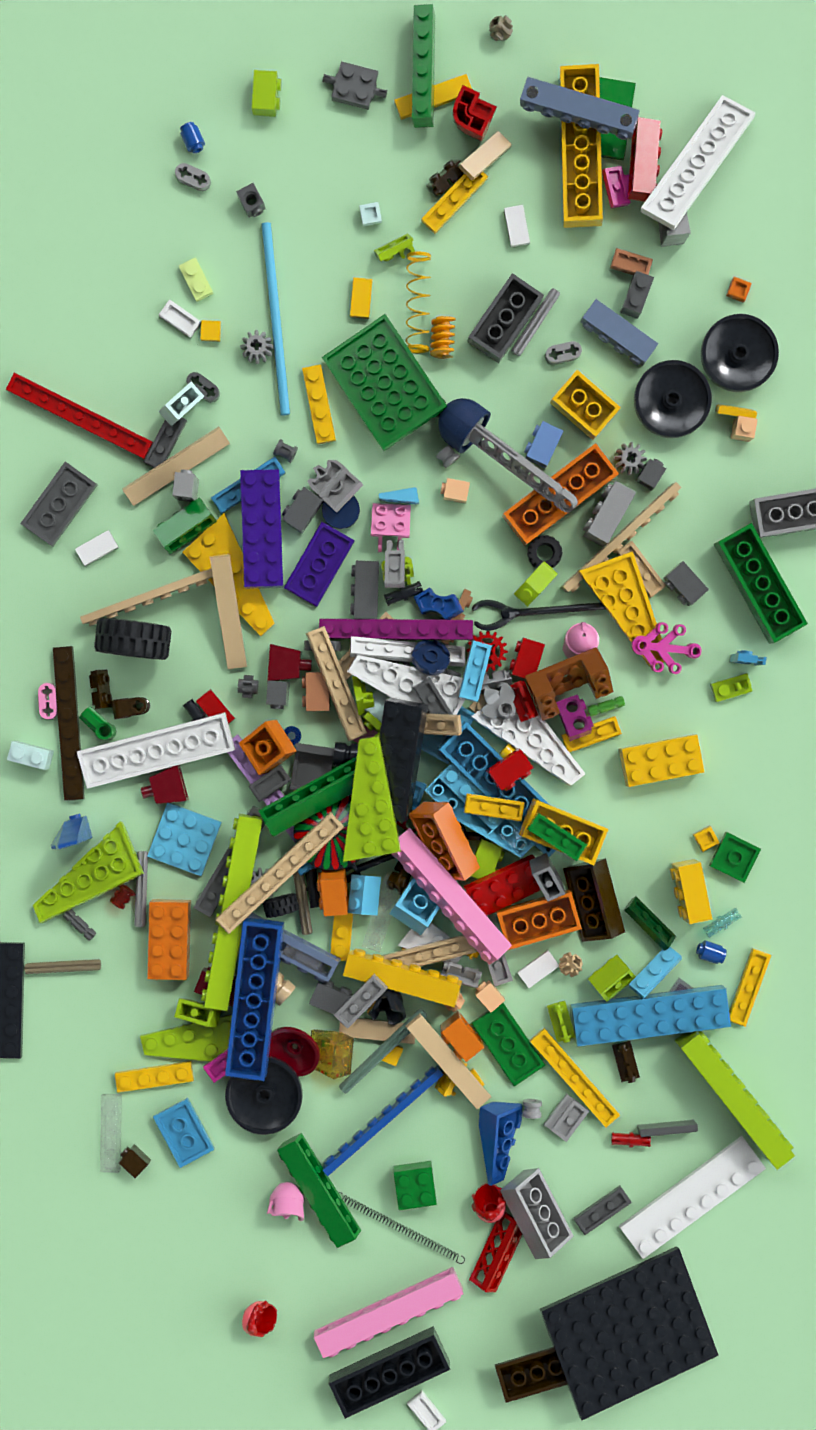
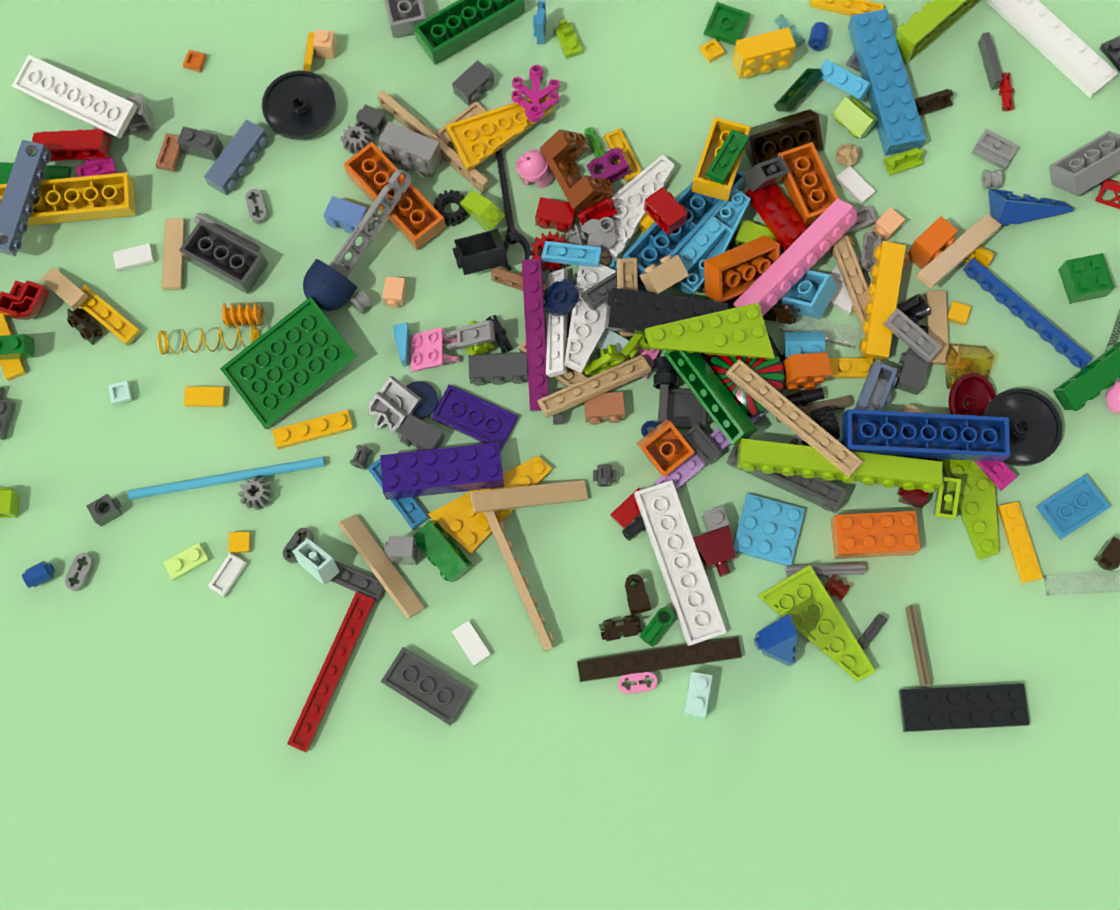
camera: 90 degrees left, 15 degrees down
(132, 638) = (565, 587): black tyre -> none
(194, 789) = (715, 519): none -> light grey brick
(277, 694) = (610, 442): dark grey brick -> none
(286, 663) = (578, 440): dark red torso -> none
(378, 1055) = (958, 318): sand green axle -> none
(396, 246) = (154, 366): lime plate -> none
(439, 761) = (664, 274): none -> tan brick
(447, 606) = (506, 305): blue tile -> none
(489, 1203) = (1091, 208): red hair -> none
(493, 807) = (704, 224): yellow tile -> none
(501, 576) = (476, 244): none -> black window
(508, 1044) = (939, 199): green tile -> none
(520, 266) = (172, 258): none -> tan tile
(575, 1077) = (955, 144): yellow plate -> none
(585, 405) = (306, 179): yellow brick -> none
(602, 1210) = (1078, 113): dark grey tile -> none
(661, 760) = (642, 90): yellow brick -> none
(739, 352) = (254, 51): black dish -> none

